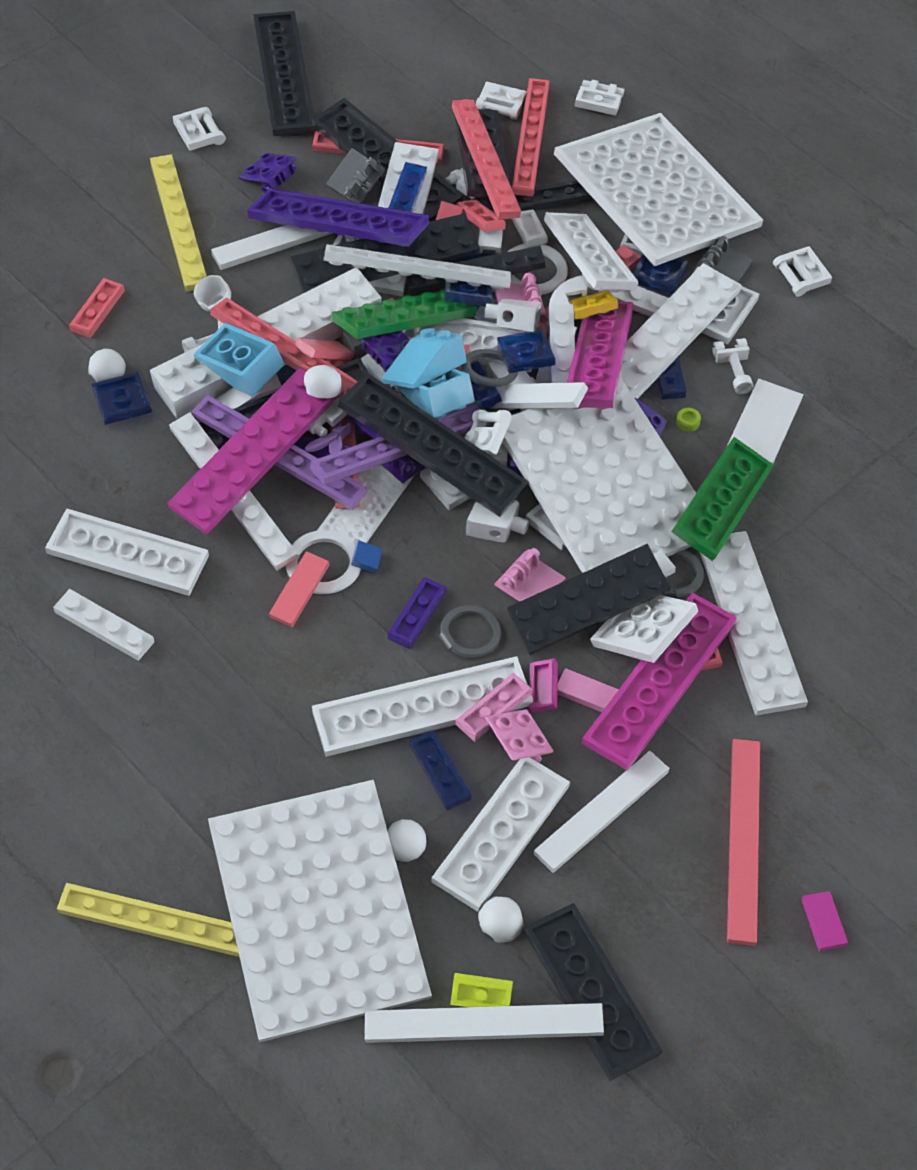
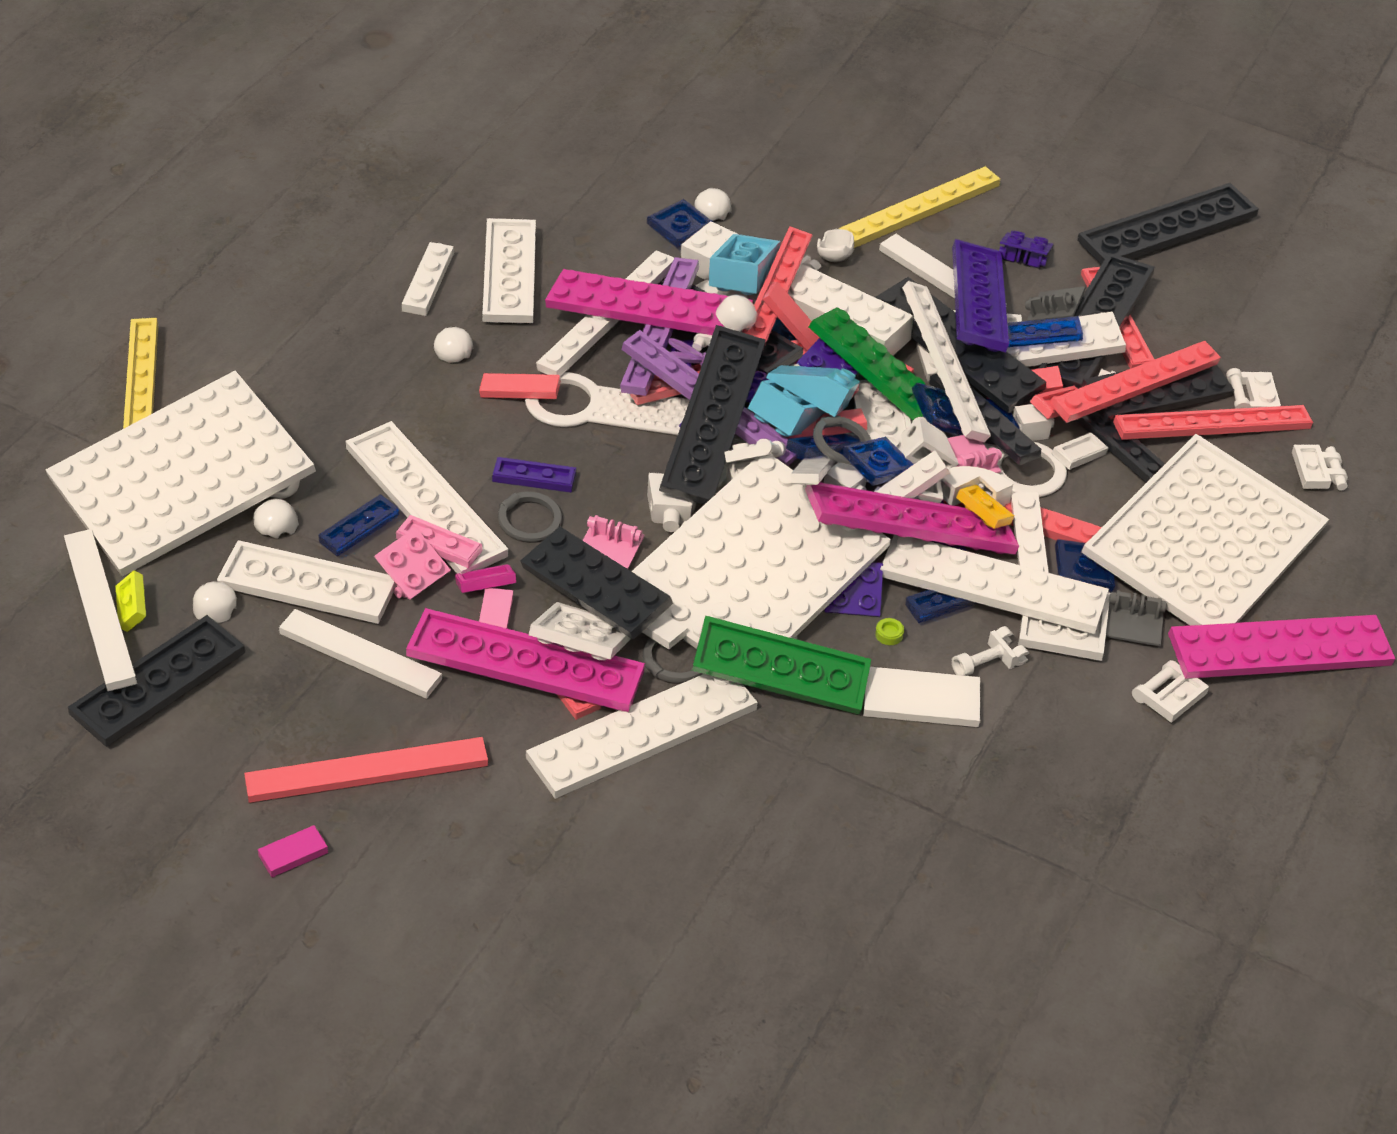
camera: 70 degrees right, 10 degrees down
(96, 308) = (780, 184): coral tile -> none
(193, 132) = (1043, 182): white plate -> none
(216, 628) = (453, 345): none -> white hair
(366, 556) = (580, 422): blue tile -> none
(591, 251) = (1059, 489): white plate -> none
(781, 192) = (1280, 646): none -> dark pink plate

